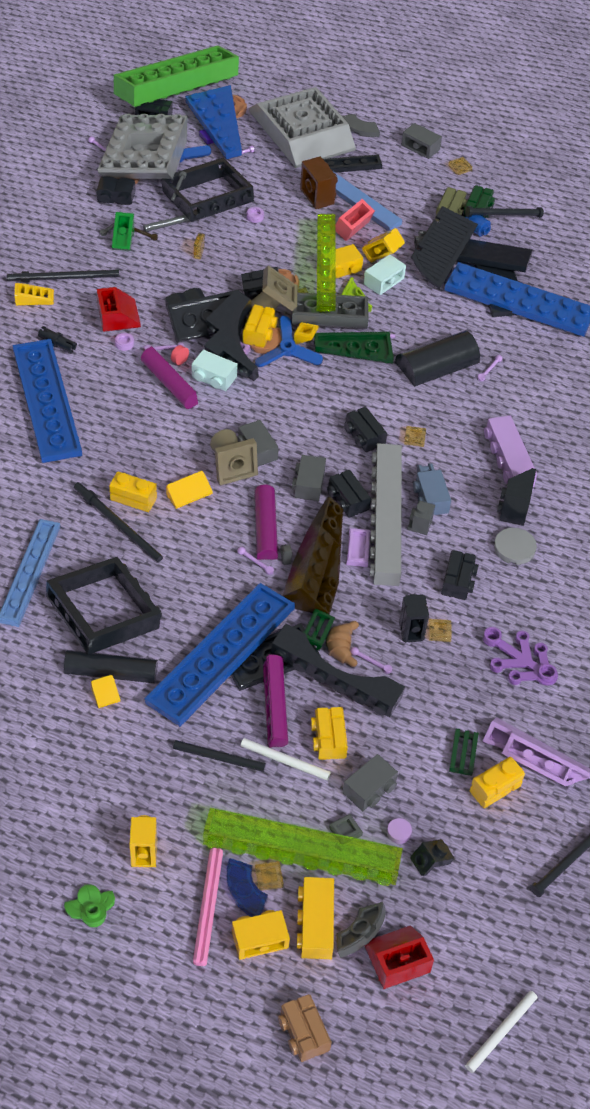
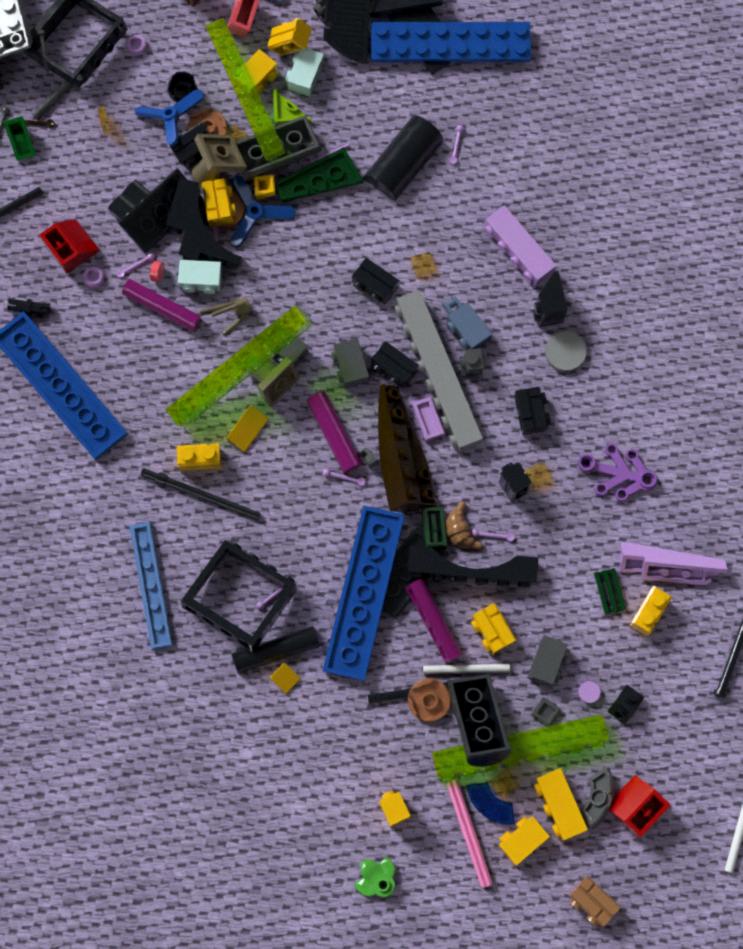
camera: 20 degrees left, 25 degrees up
(207, 429) = (239, 366): none -> clear neon green brick
(233, 767) = (429, 700): none -> nougat tile
(235, 404) = (239, 307): none -> dark tan plant
(257, 260) = (172, 114): none -> blue piece
(270, 796) = (479, 720): none -> black brick
(275, 248) = (181, 85): none -> black hair

